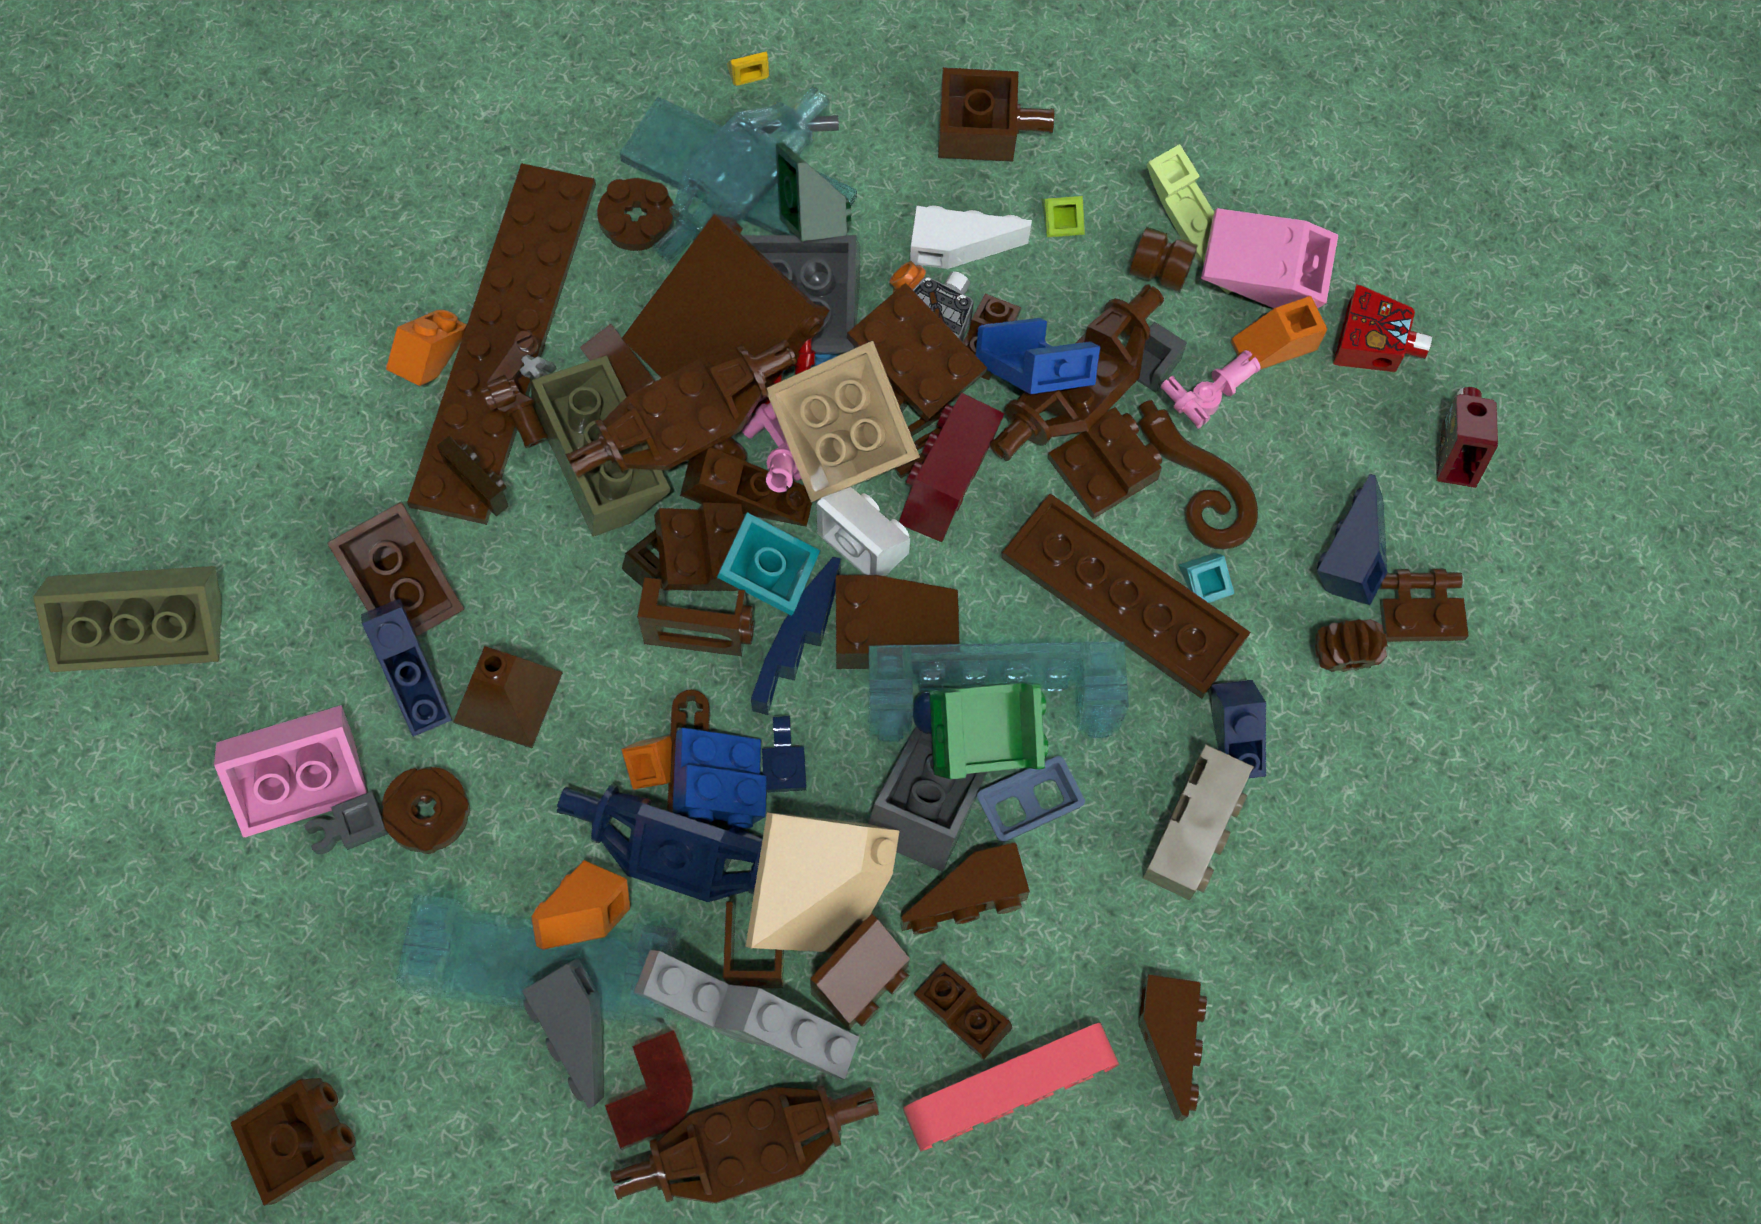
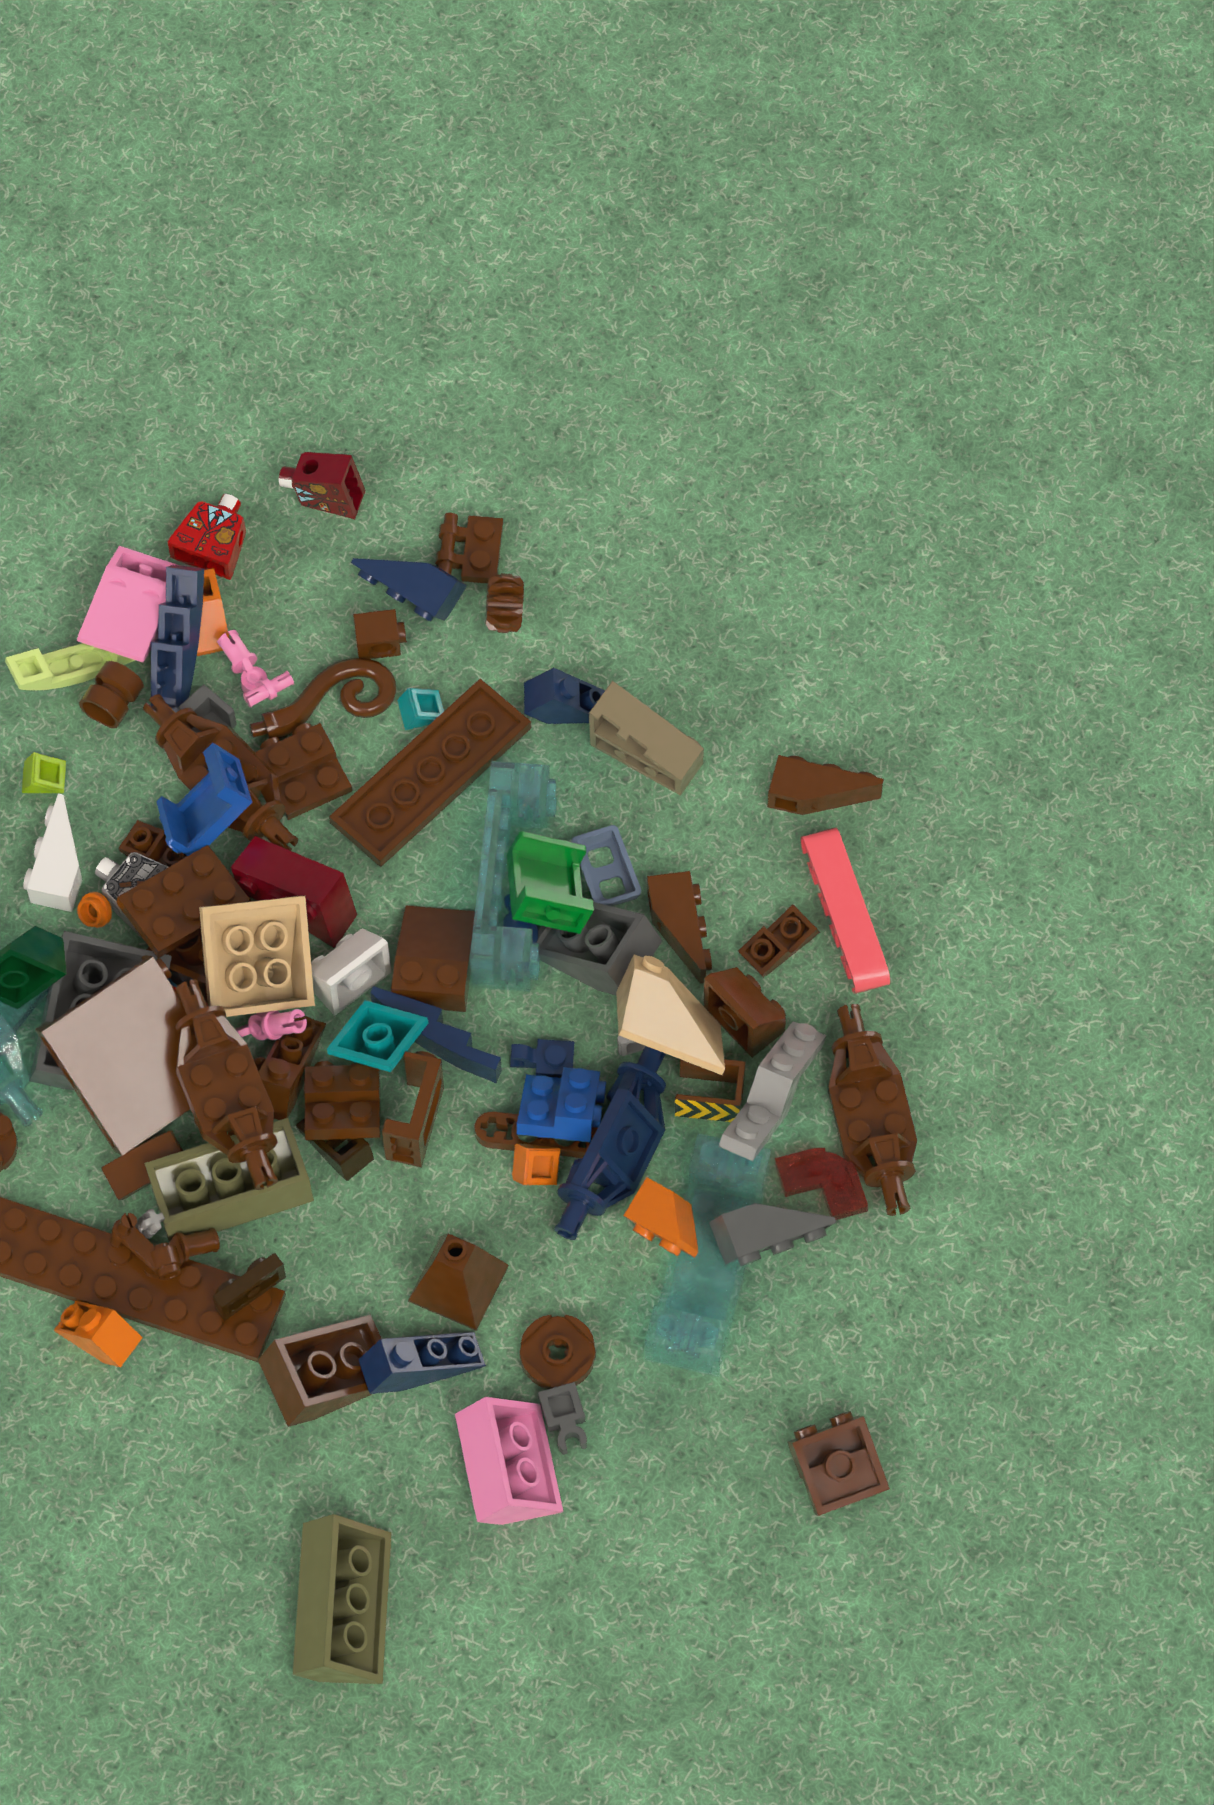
camera: 80 degrees left, 5 degrees down
(1227, 309) = (178, 635): none -> dark blue slope
(1288, 517) = (379, 634): none -> reddish brown brick

